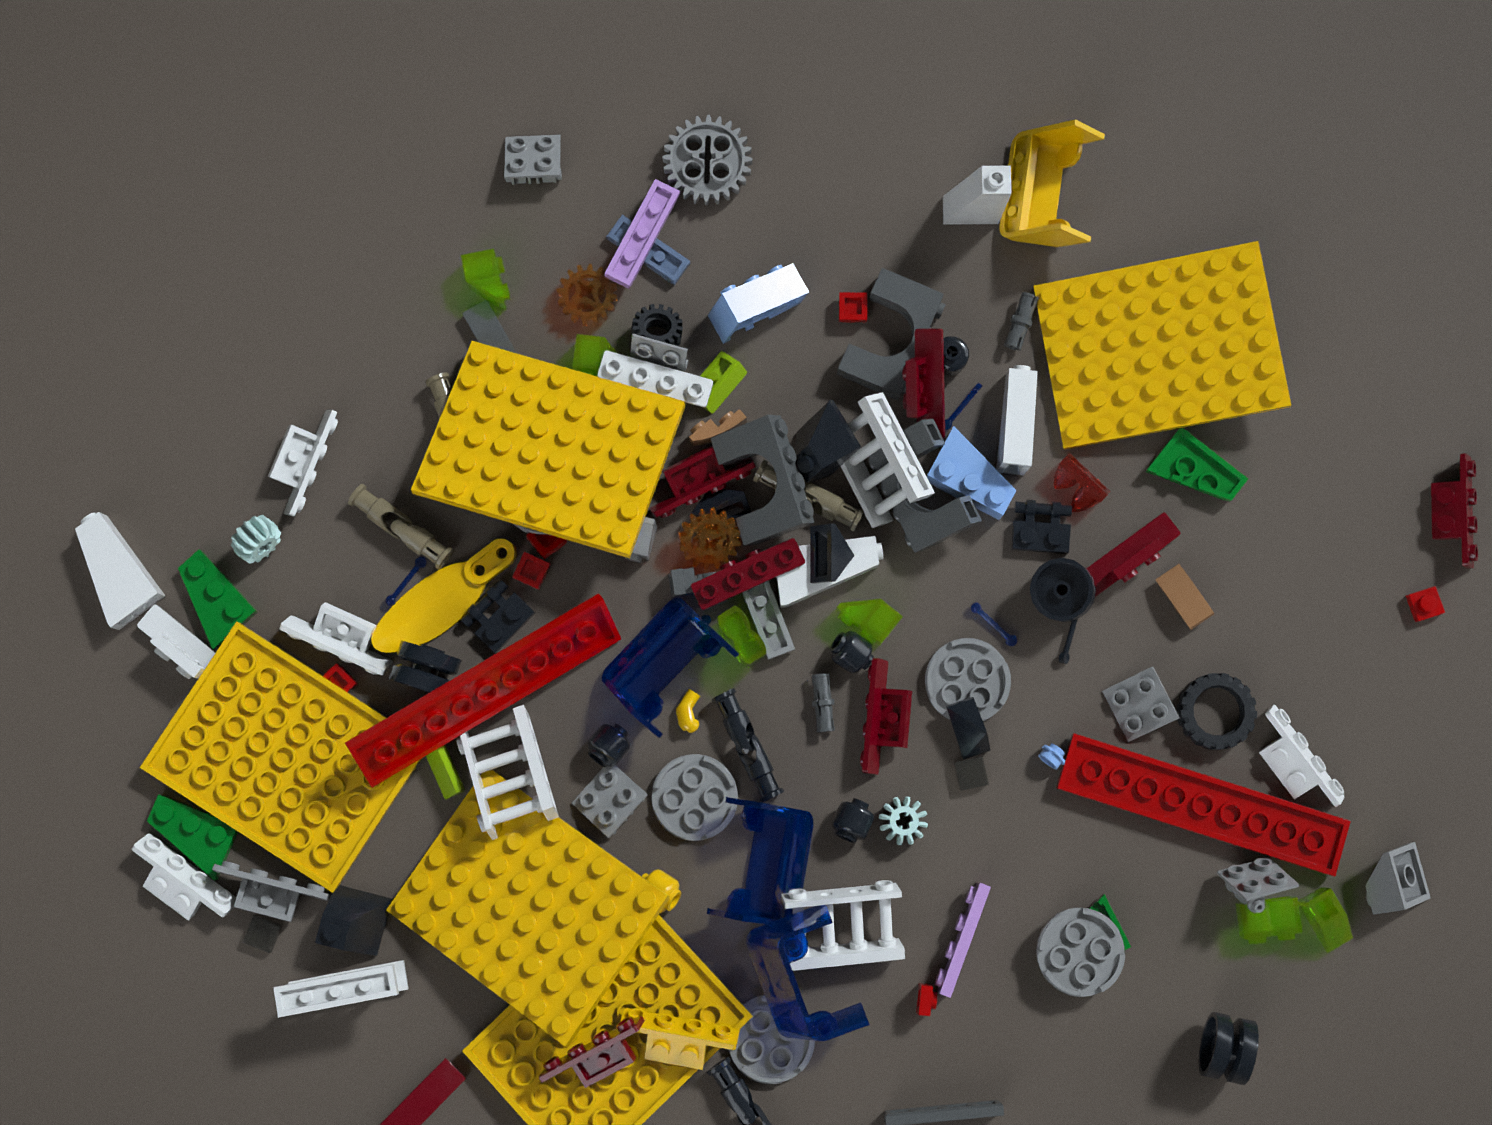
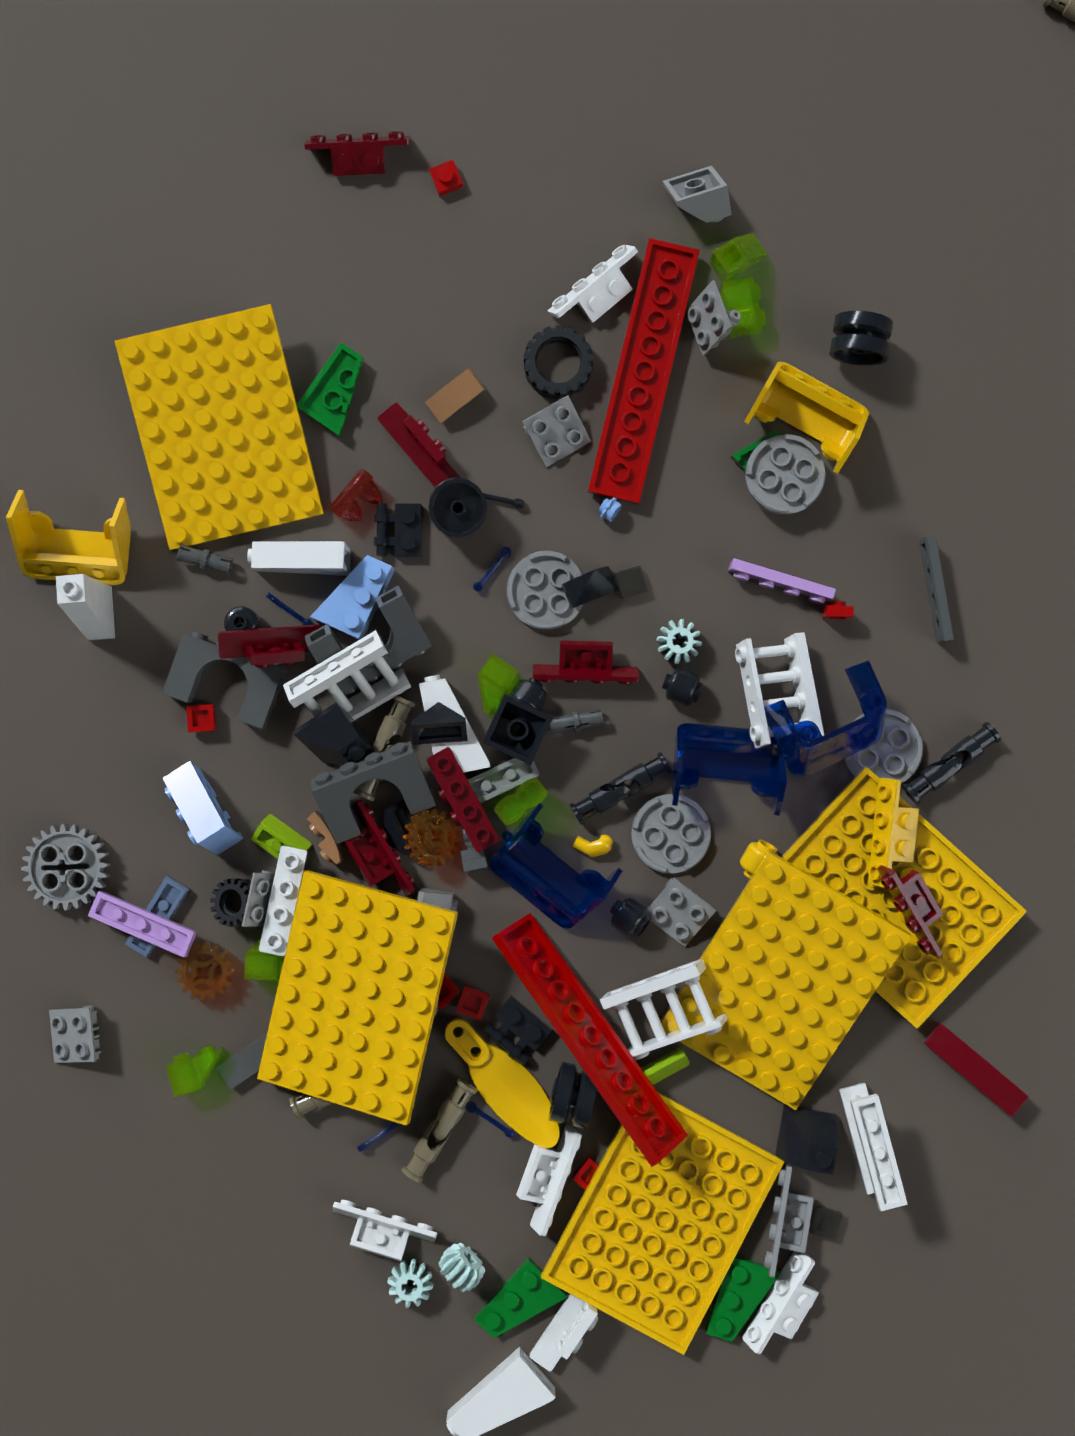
camera: 90 degrees left, 5 degrees up
(242, 474) = (420, 1285): none -> light aqua gear
(400, 464) = (364, 1145): none -> clear blue hinge
(819, 637) = (517, 729): none -> black slope
(1154, 986) = (812, 409): none -> yellow windscreen

